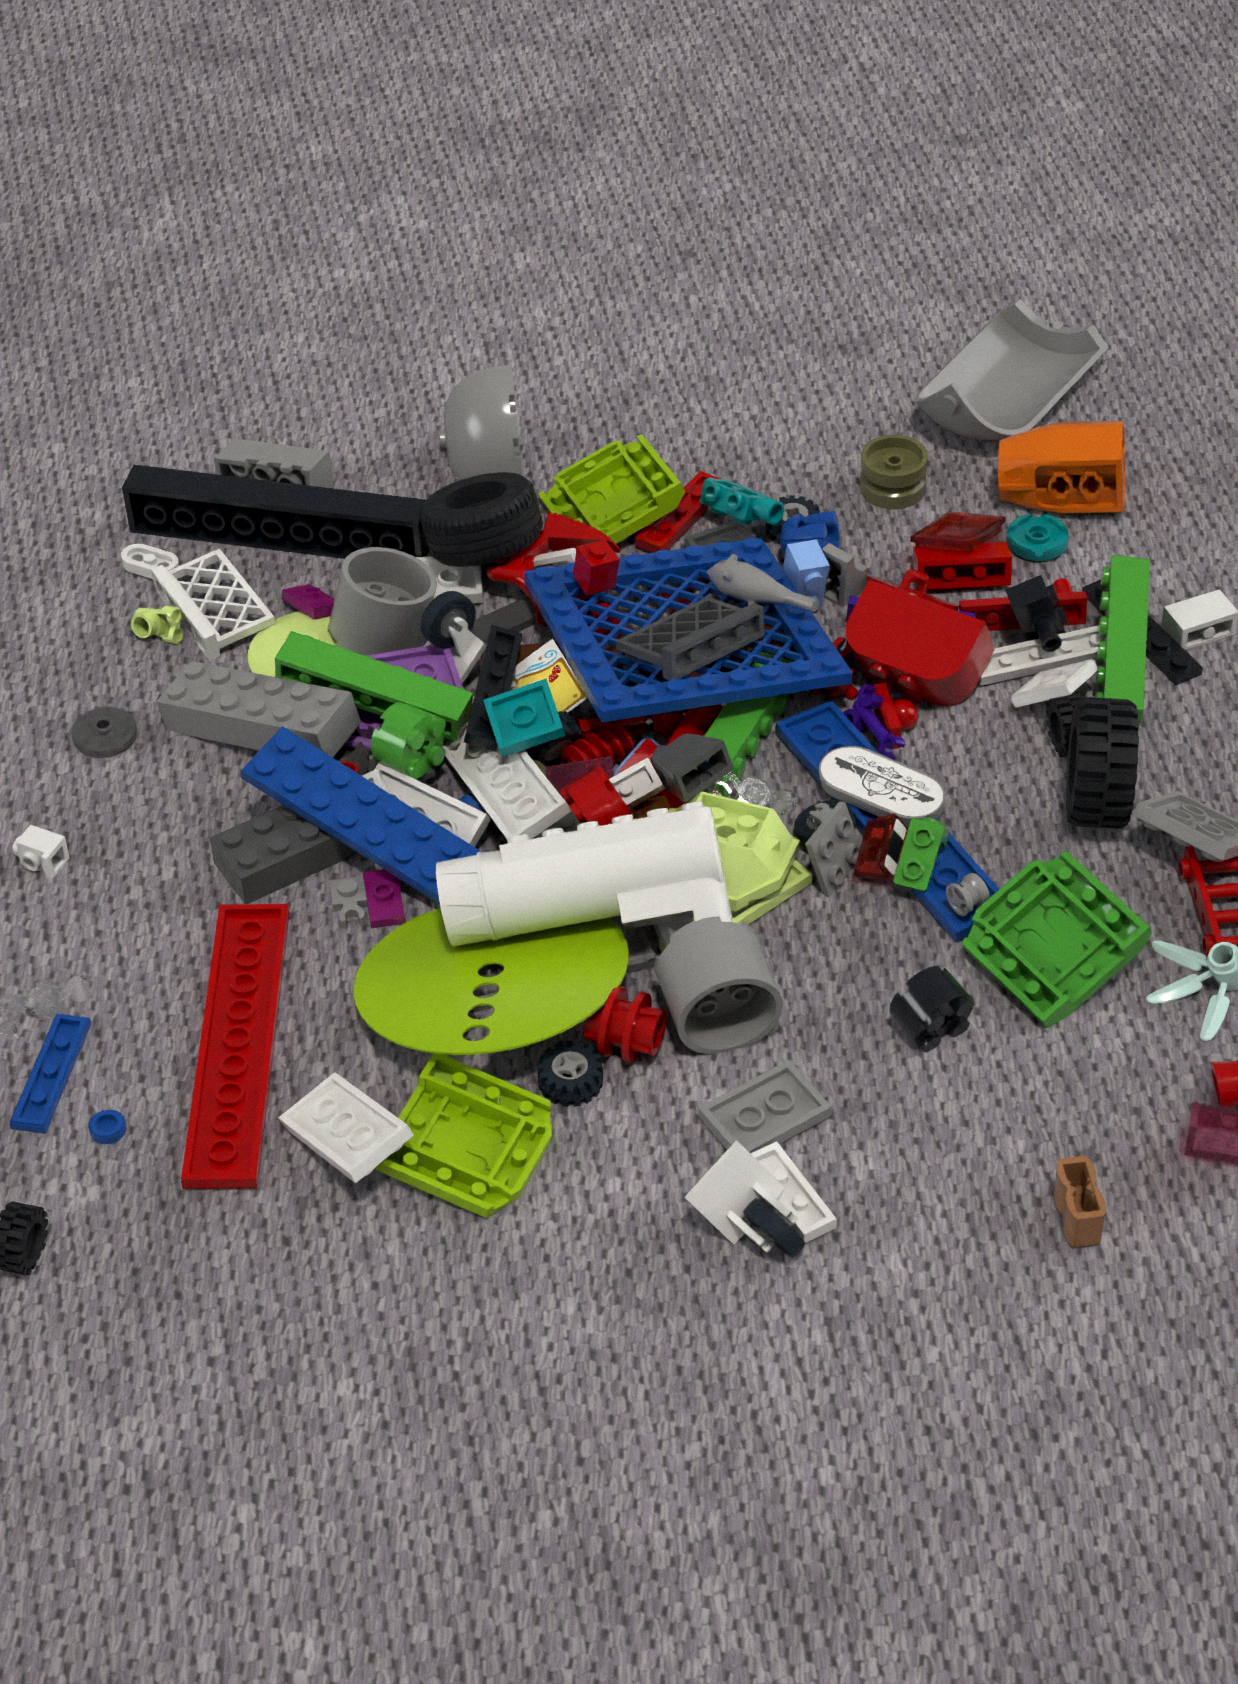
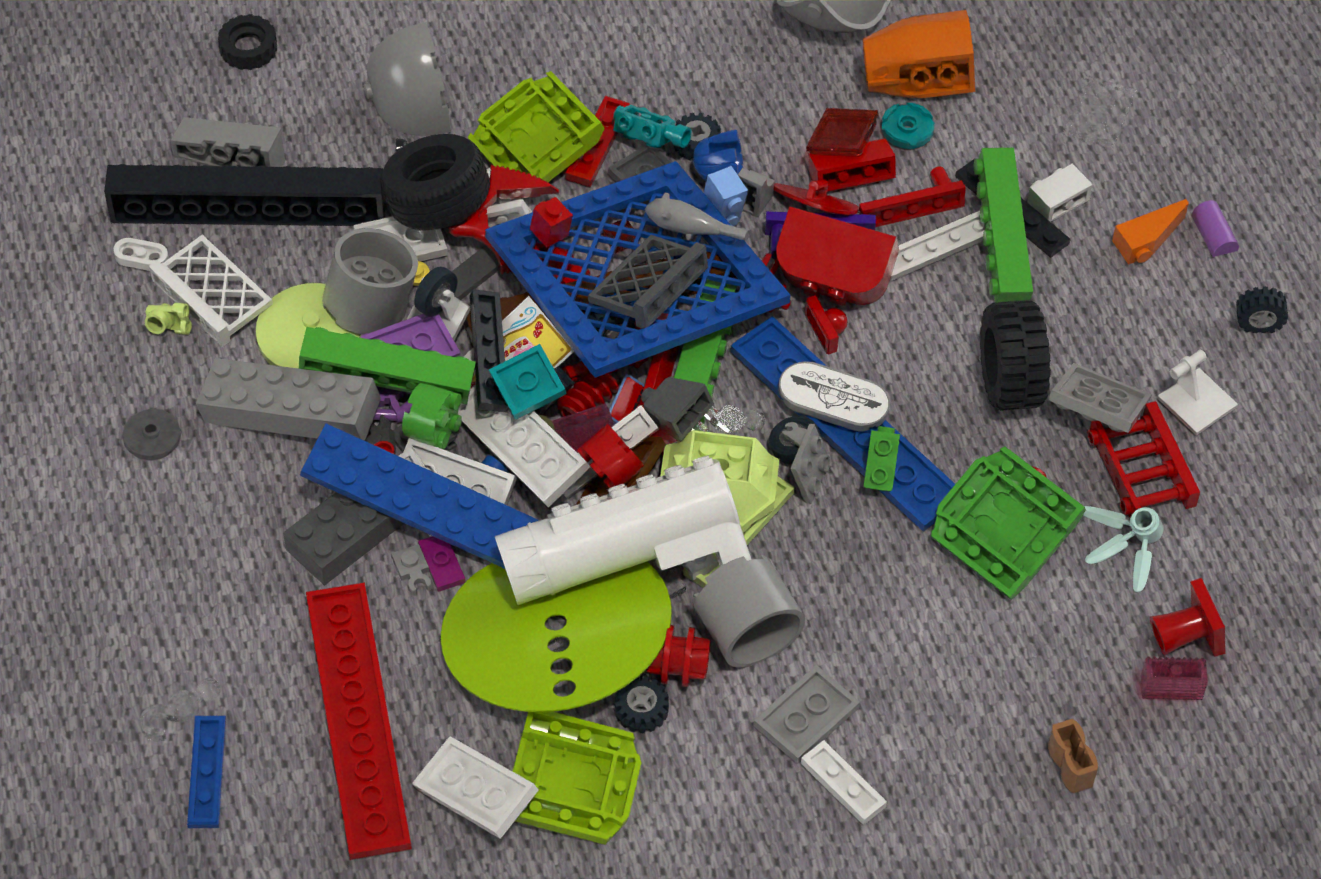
camera: 15 degrees left, 10 degrees up
(41, 850) = (134, 562): white brick -> none
(107, 1127) = (270, 814): blue tile -> none
(309, 600) = (298, 277): magenta plate -> none
(328, 397) = (243, 26): none -> black tyre
(738, 1194) = (808, 796): white plate -> none
(862, 715) = (803, 327): dark purple bar -> none
(881, 848) = (846, 456): clear red slope -> none
(893, 471) = (773, 76): olive wheel -> none
(932, 1007) = (922, 599): black brick -> none
(967, 894) = (928, 491): light grey wheel -> none
(1036, 612) = (930, 210): black brick -> none
(1054, 683) = (955, 275): white plate -> none
(1059, 721) = (969, 311): black tyre -> none

